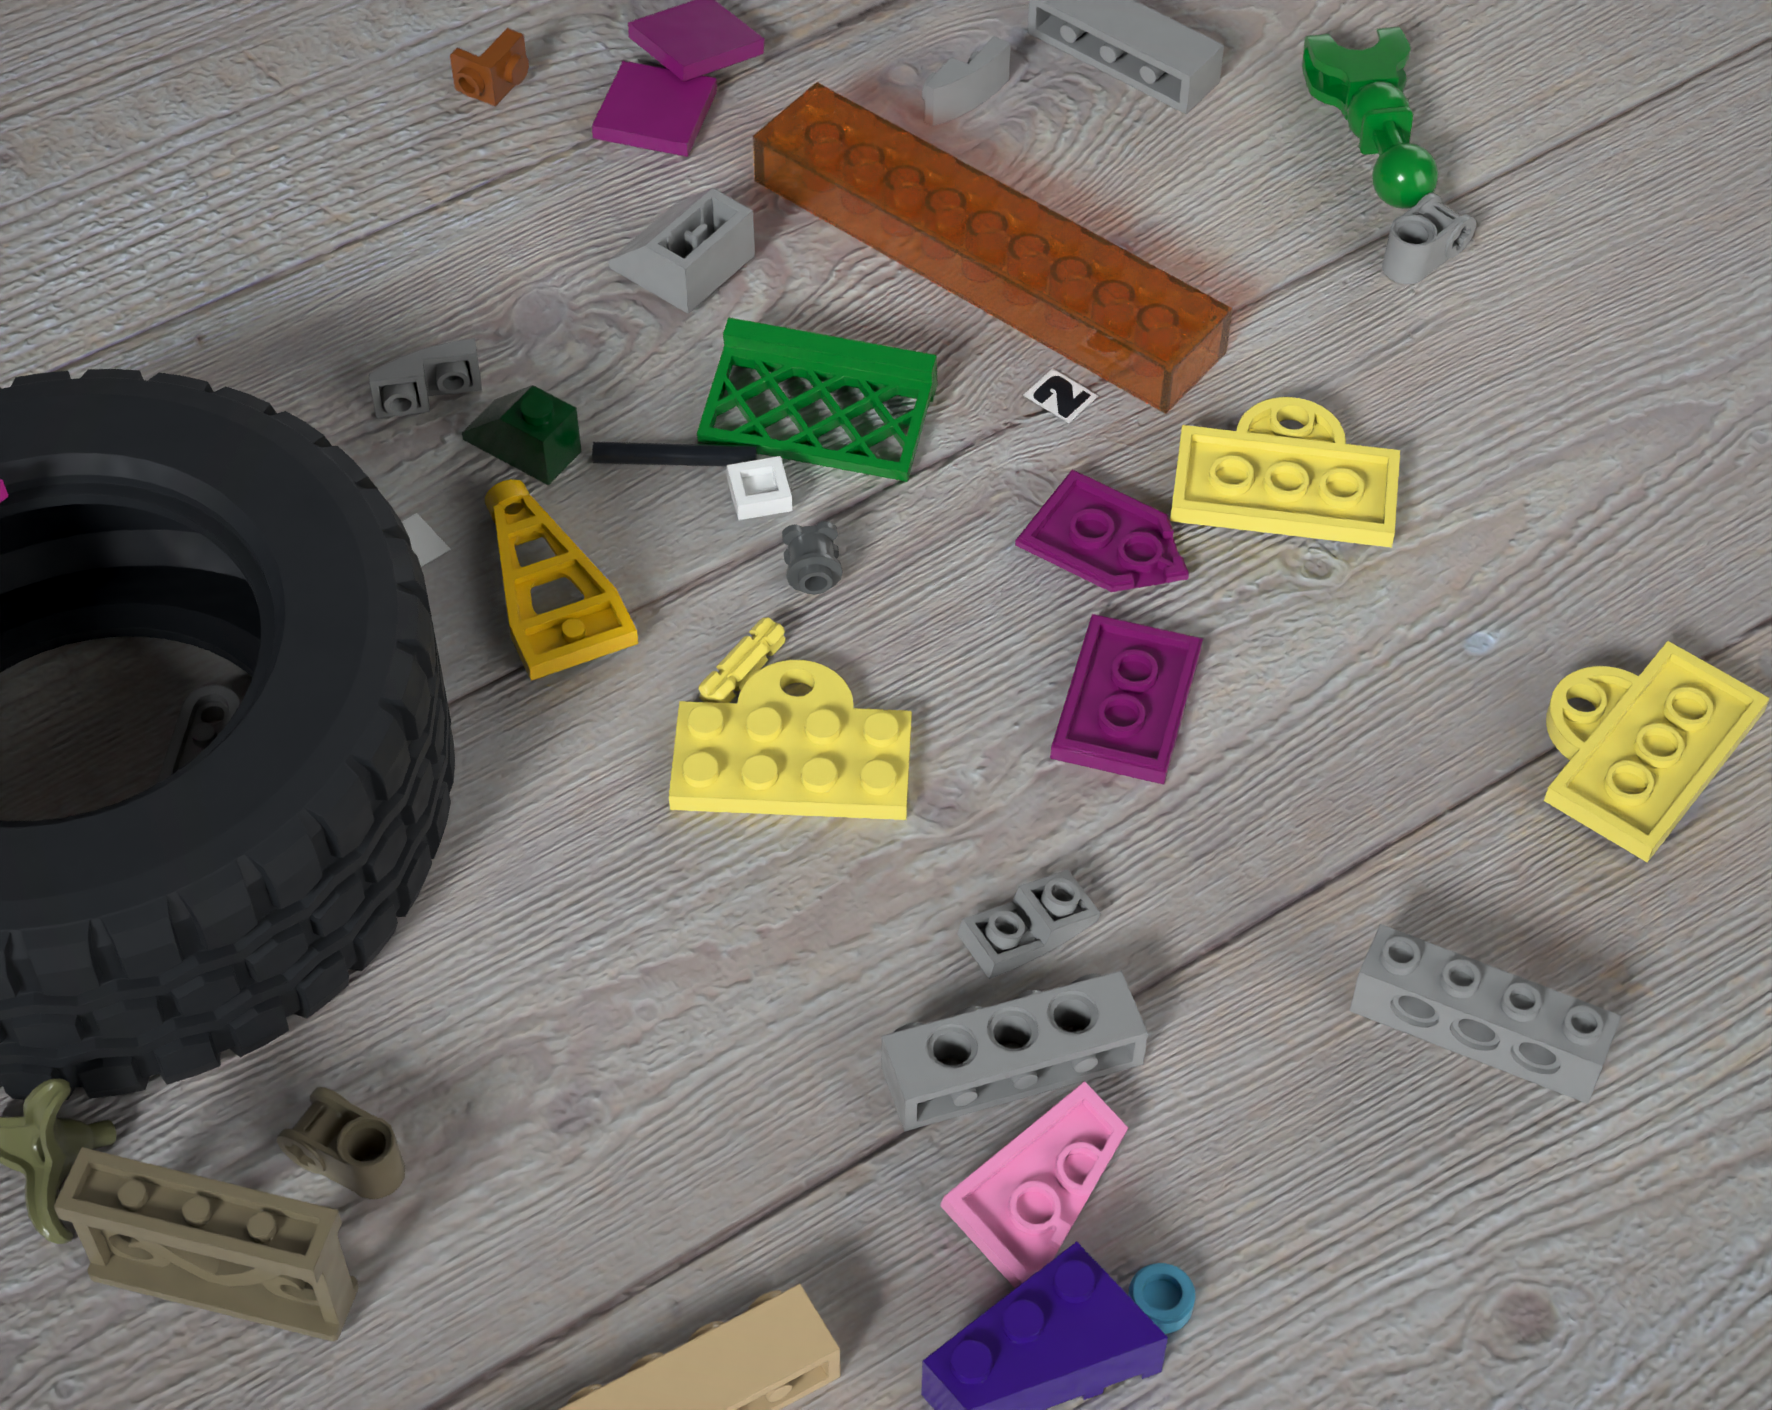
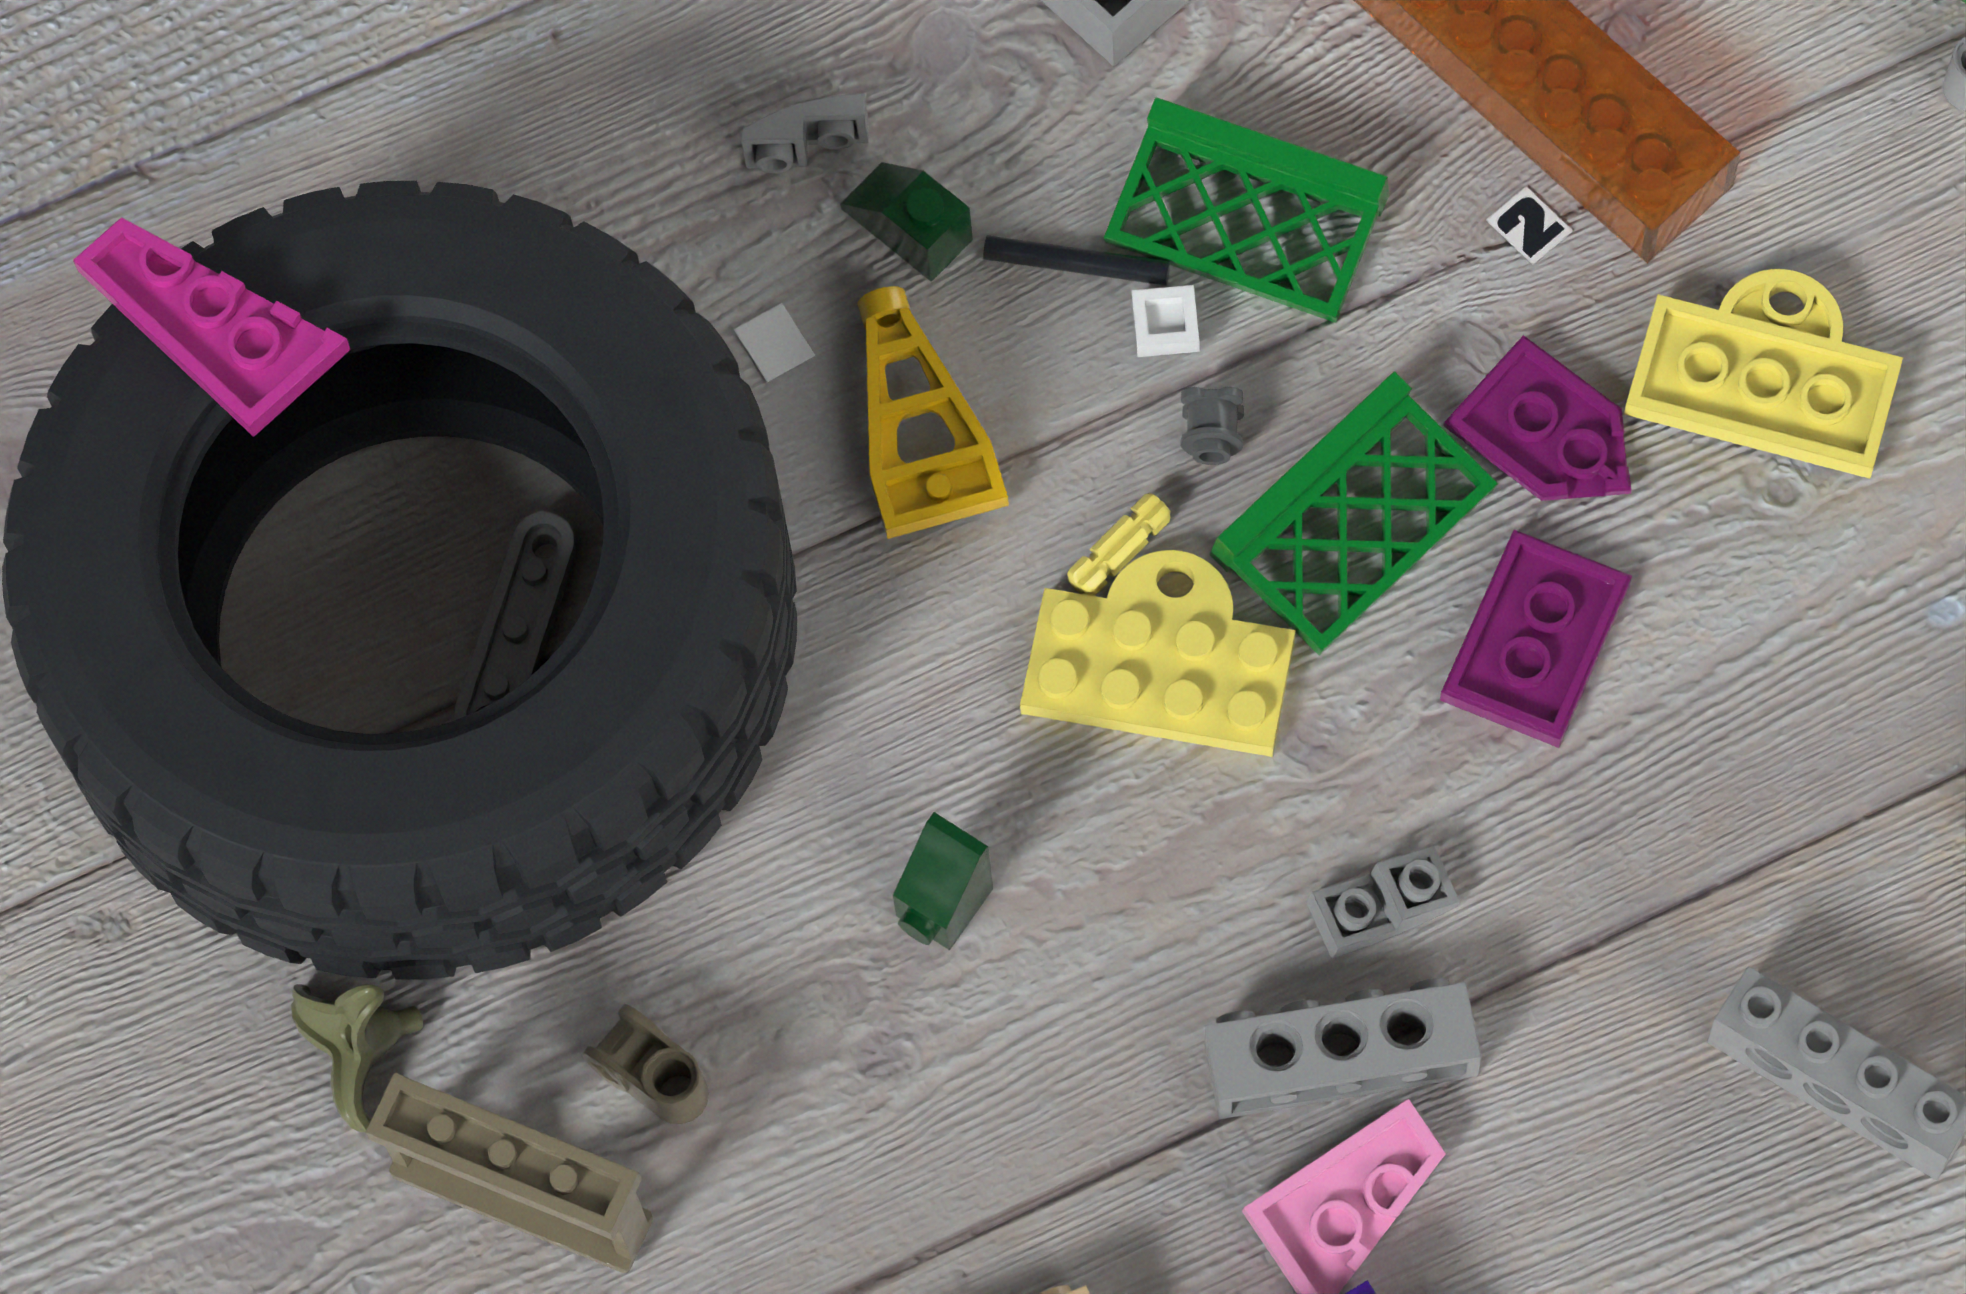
camera: 15 degrees right, 15 degrees up
(615, 942) = (942, 883): none -> dark green slope
(903, 596) = (1315, 475): none -> green fence

